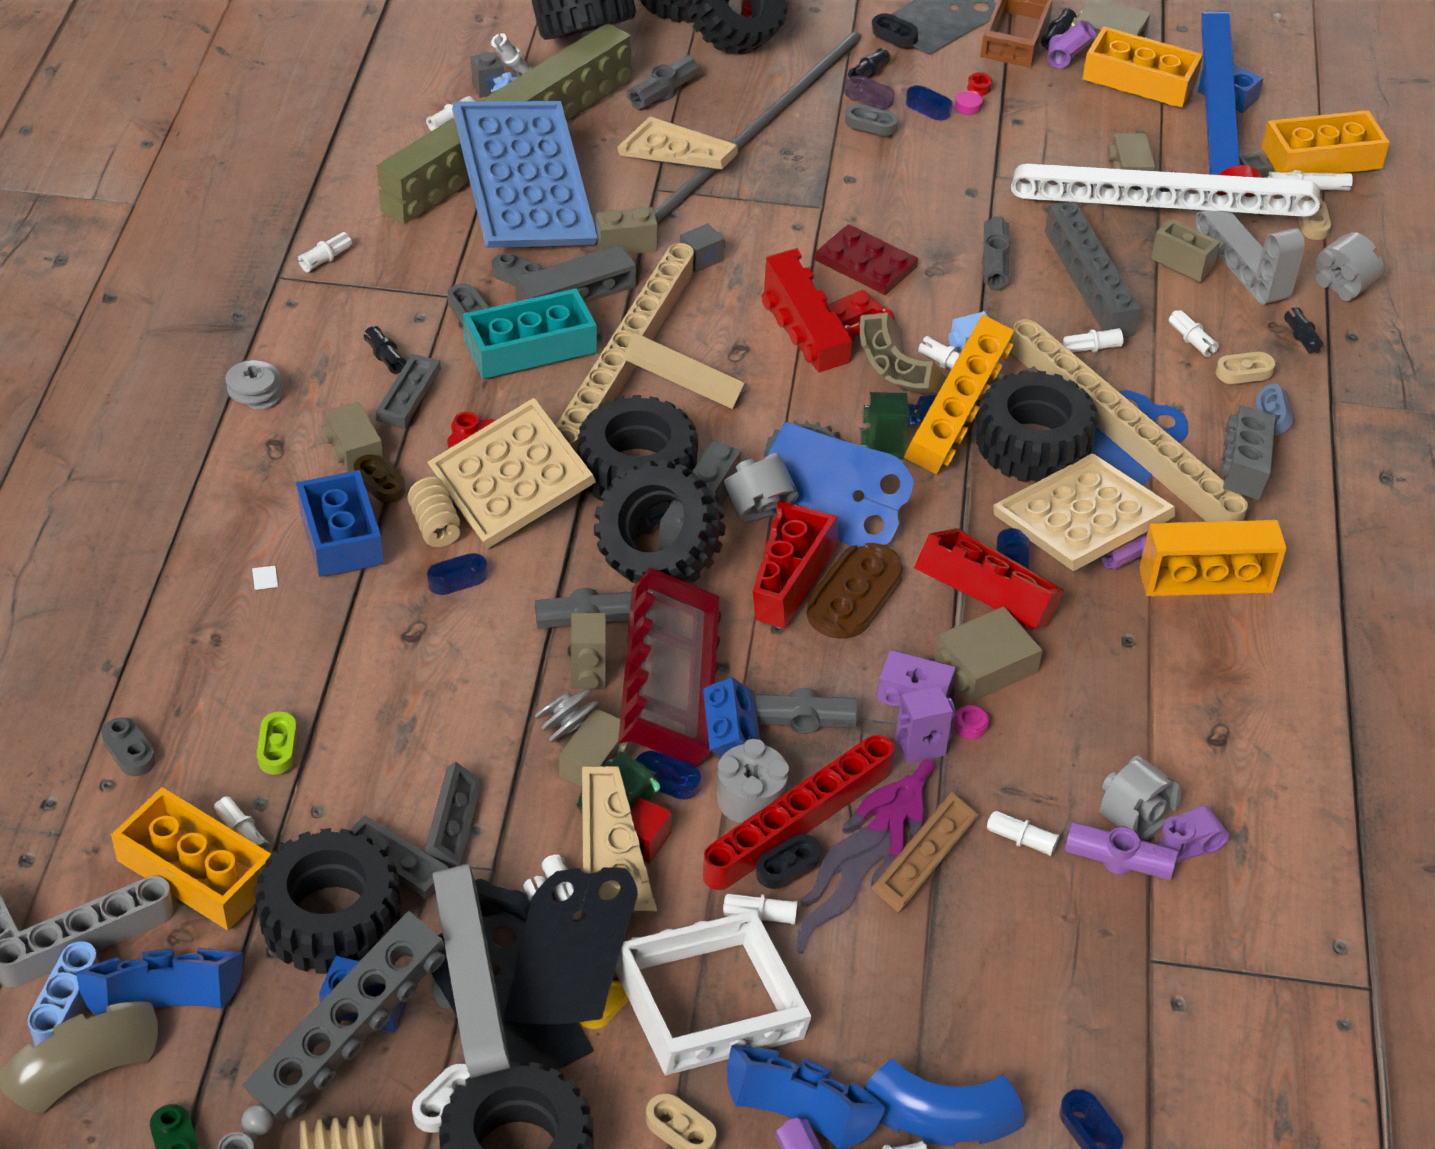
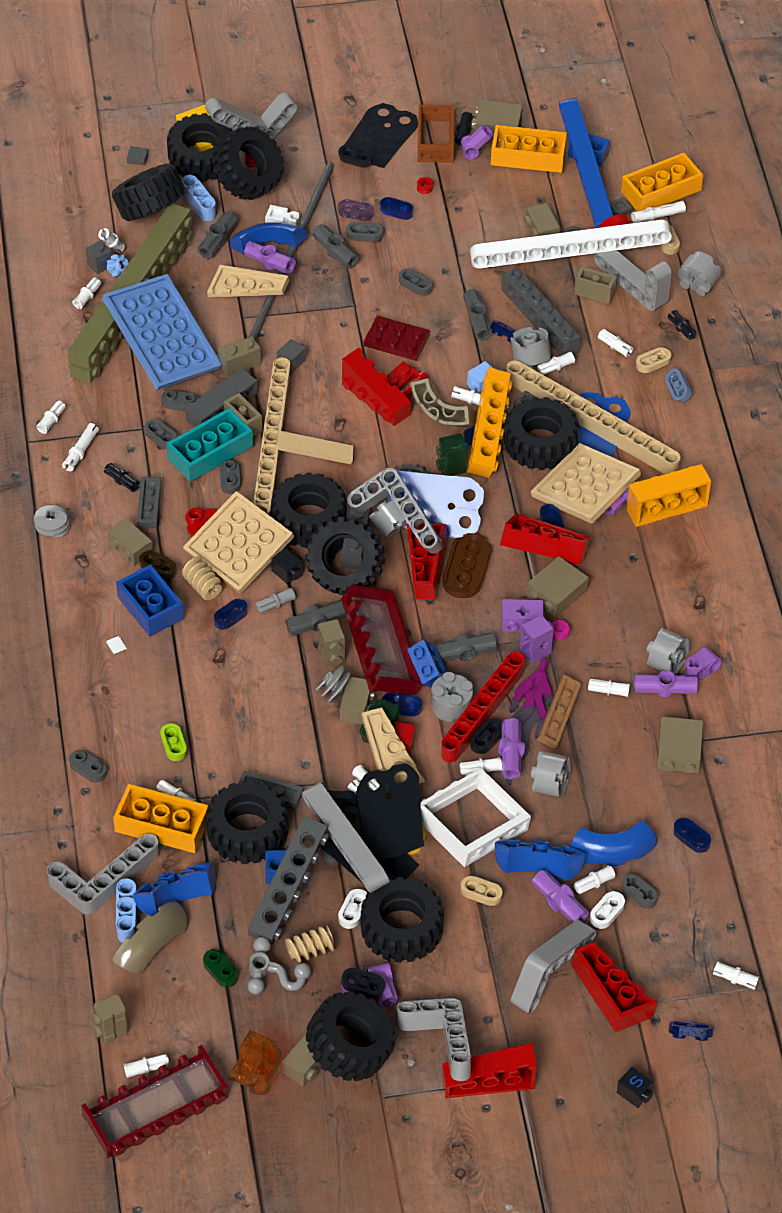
camera: 15 degrees left, 5 degrees up
(338, 303) = (77, 452): none -> white pin
(453, 815) = (292, 757): dark grey plate -> none
(534, 570) = (275, 600): none -> light grey axle
(545, 383) = (230, 476): none -> dark grey plate
(571, 524) = (286, 566): none -> black brick
(599, 303) = (245, 412): none -> dark tan brick
(656, 34) = (199, 198): none -> light blue beam
(717, 91) = (271, 231): none -> blue brick
(723, 121) = (269, 257): none -> medium lavender piece
(760, 77) = (281, 214): none -> white plate
(766, 443) = (404, 504): none -> light grey beam
(819, 891) = (511, 748): none -> medium lavender piece
(823, 128) = (335, 245): none -> dark grey piece
(870, 64) = (348, 187): black pin -> none
(872, 952) = (551, 774): none -> light grey brick
(920, 194) = (417, 283): none -> dark grey plate
(968, 102) = (422, 202): dark pink tile -> none
(1040, 291) = (502, 329): none -> clear blue plate
(1061, 307) = (531, 346): none -> light grey brick
(1115, 959) = (679, 744): none -> dark tan brick
(1248, 452) = (671, 420): dark grey brick -> none

